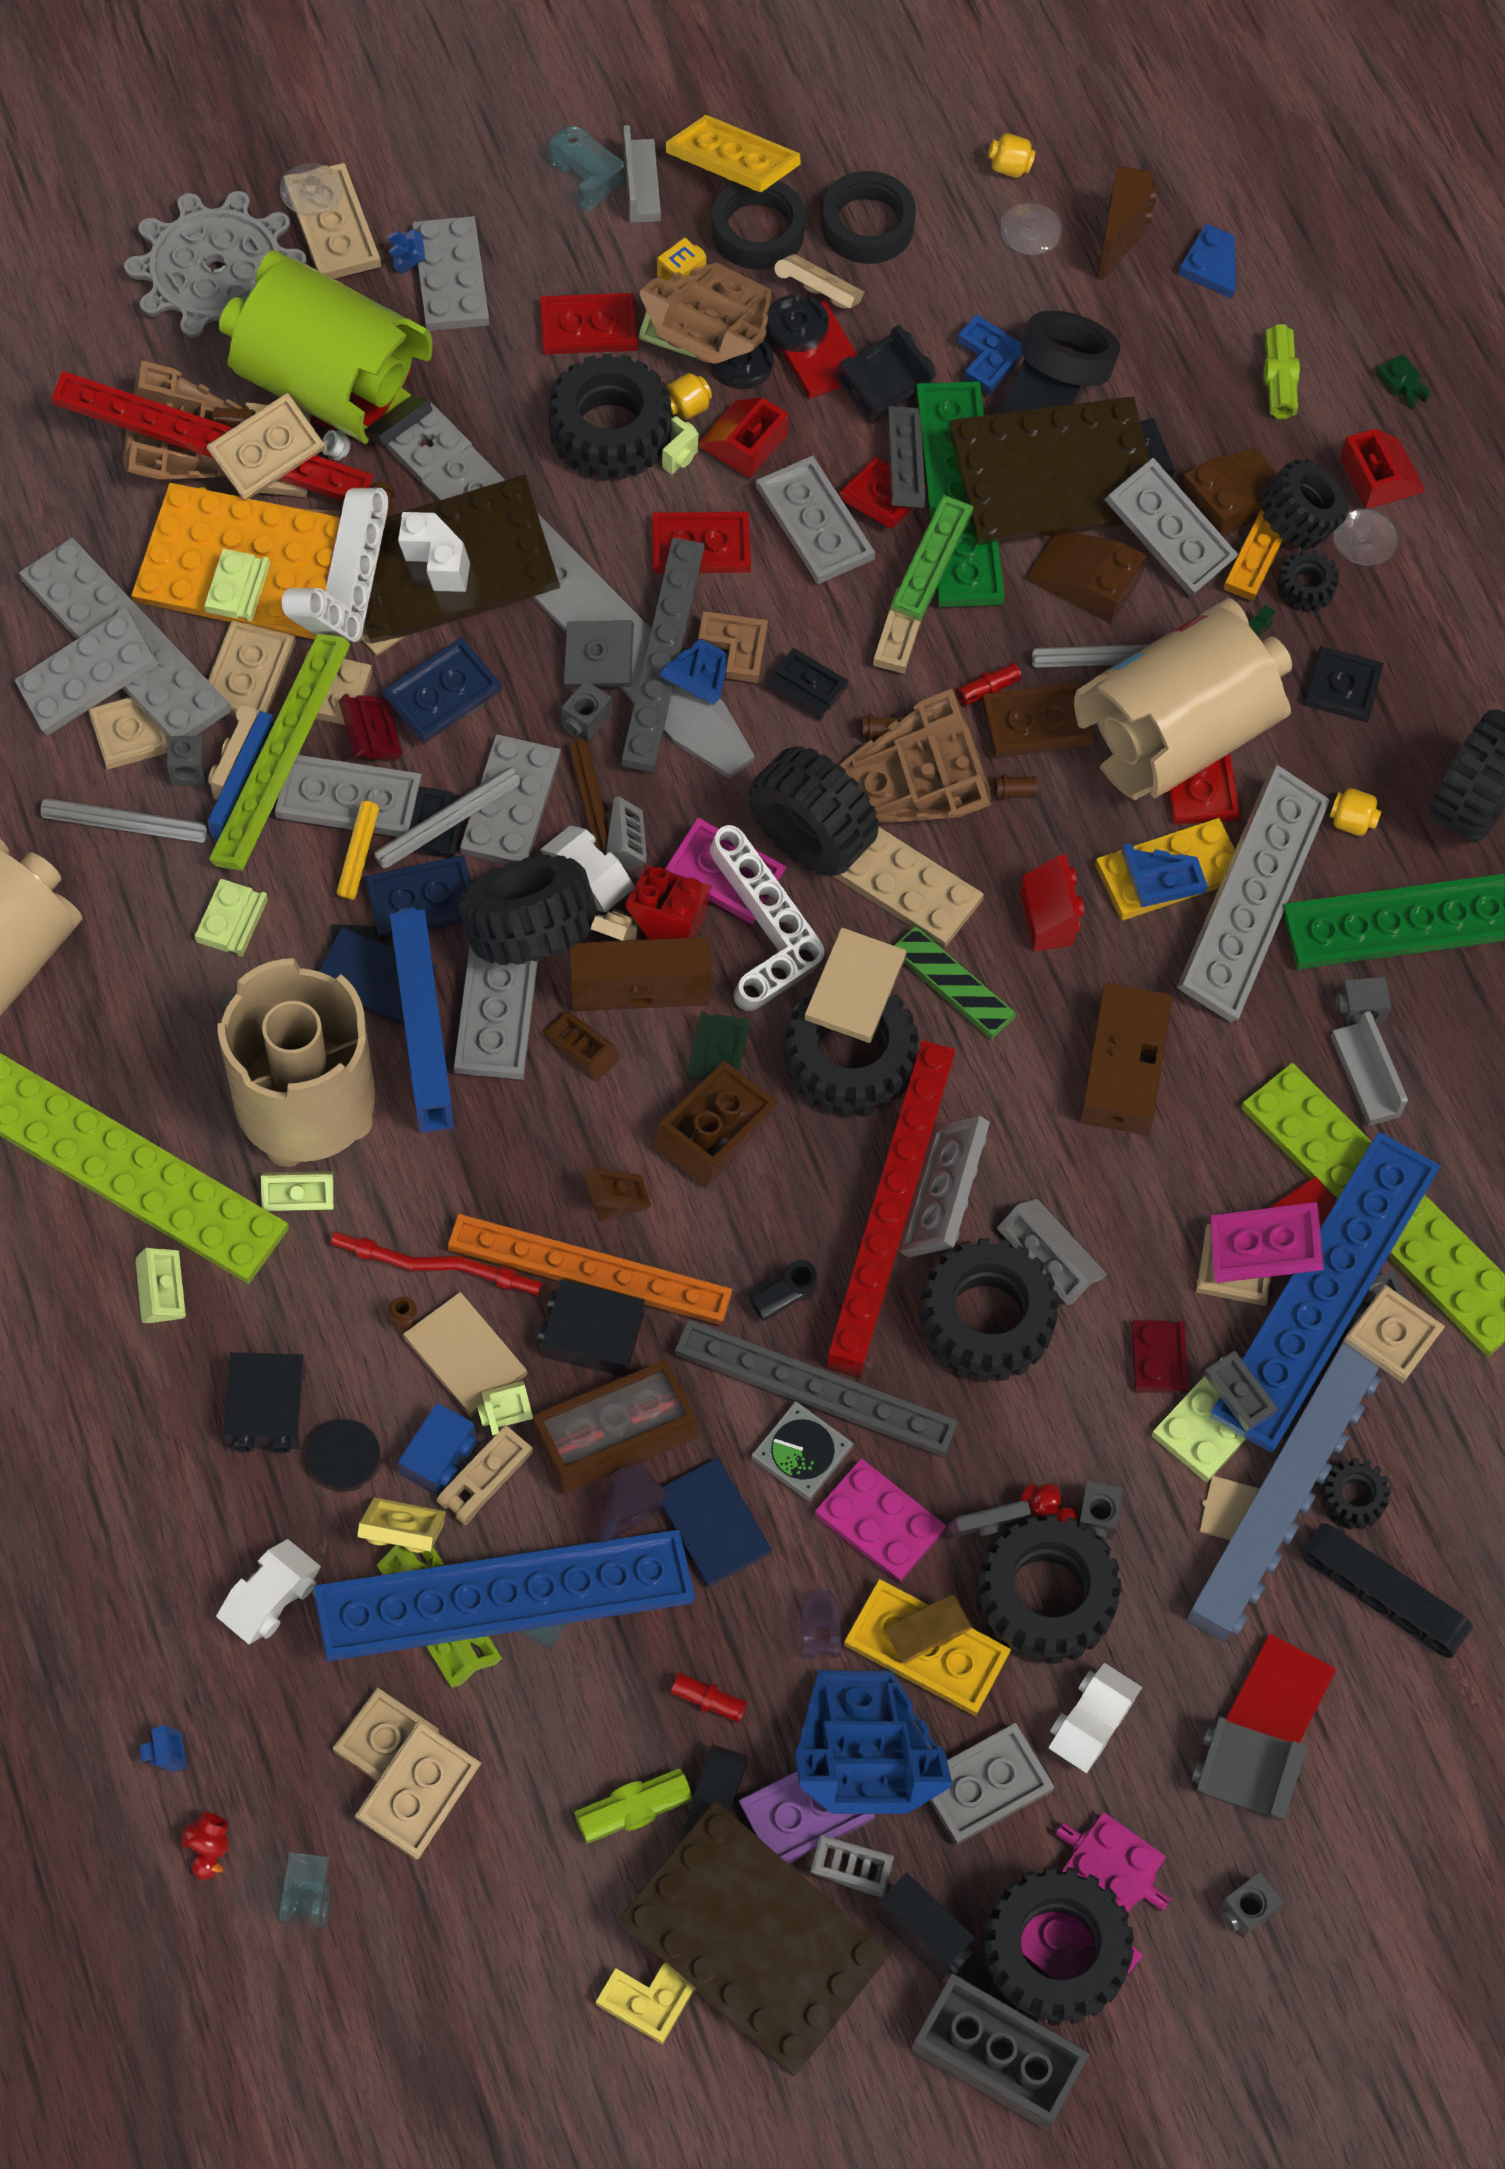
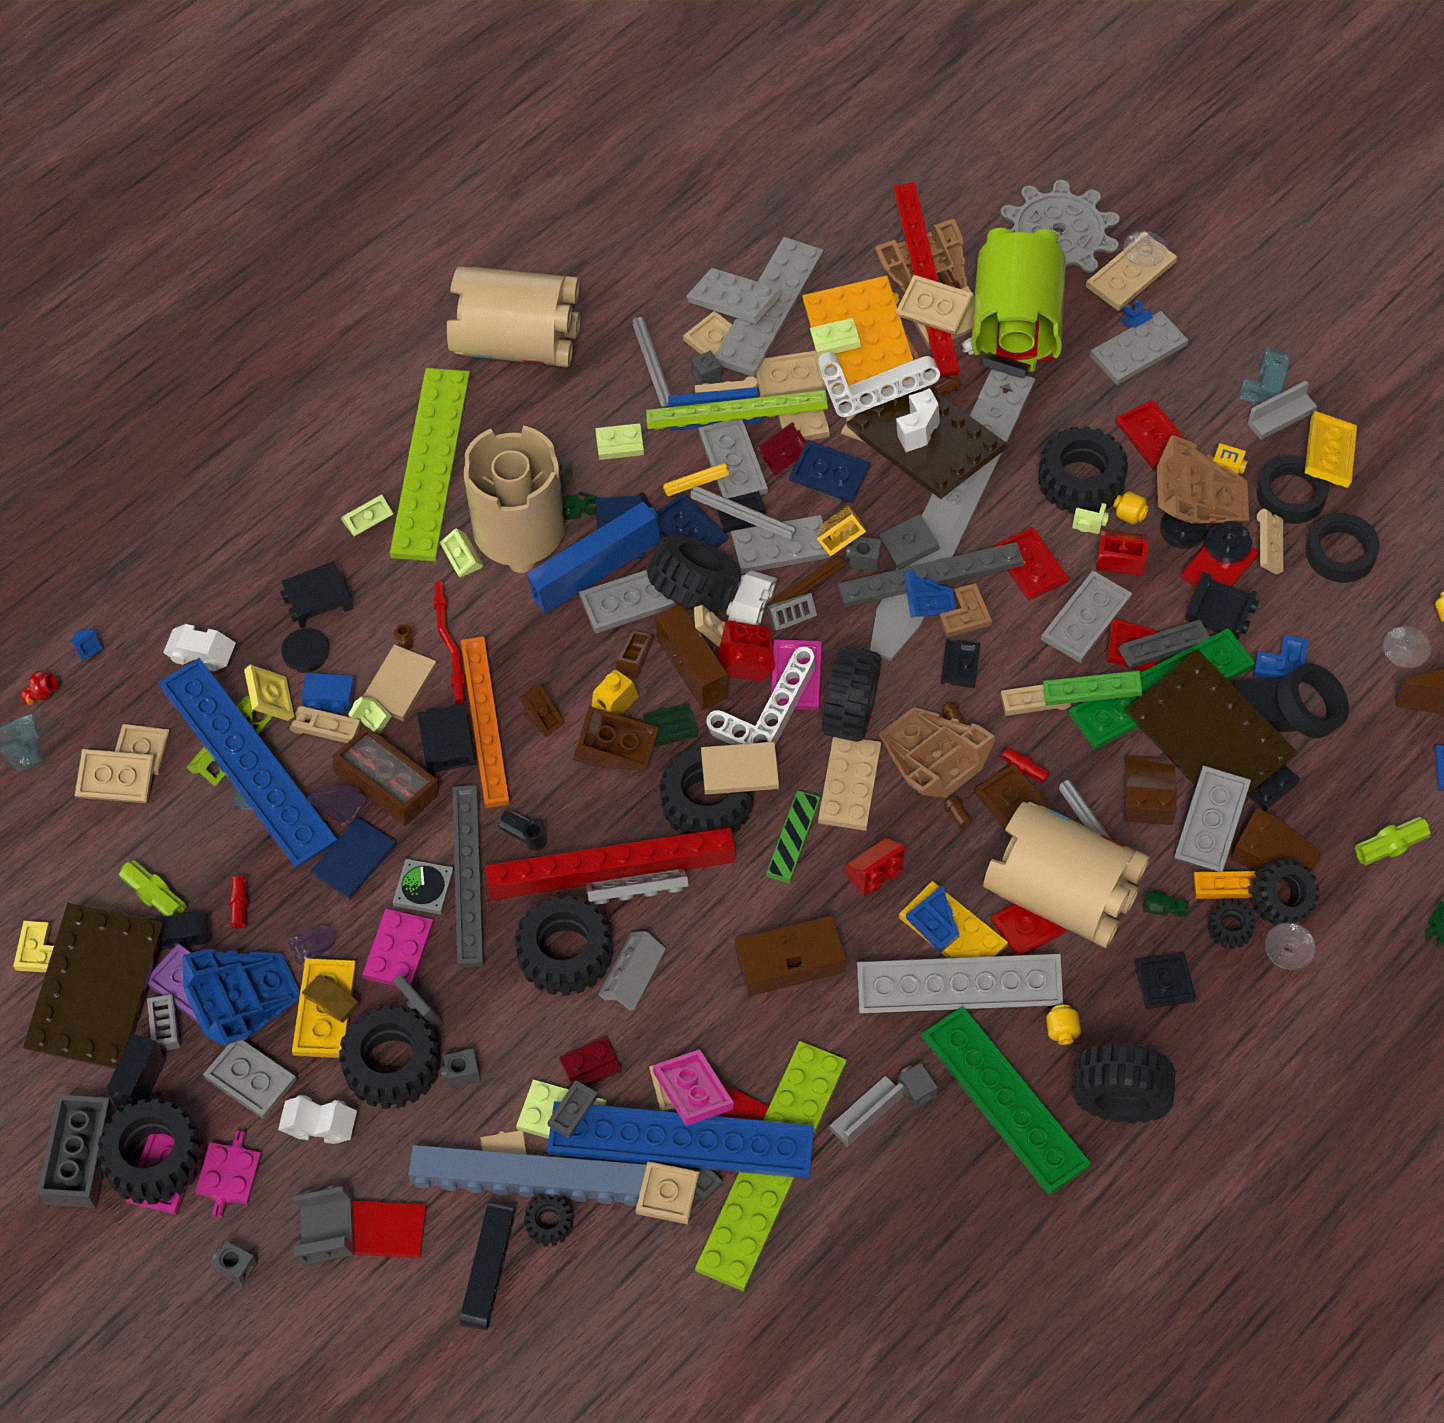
camera: 70 degrees right, 5 degrees down
(545, 715) = (842, 528): none -> yellow torso
(642, 1090) = (614, 693): none -> yellow torso
(1046, 1500) = (448, 1035): red animal -> none
(1379, 468) = (1354, 933): red slope -> none

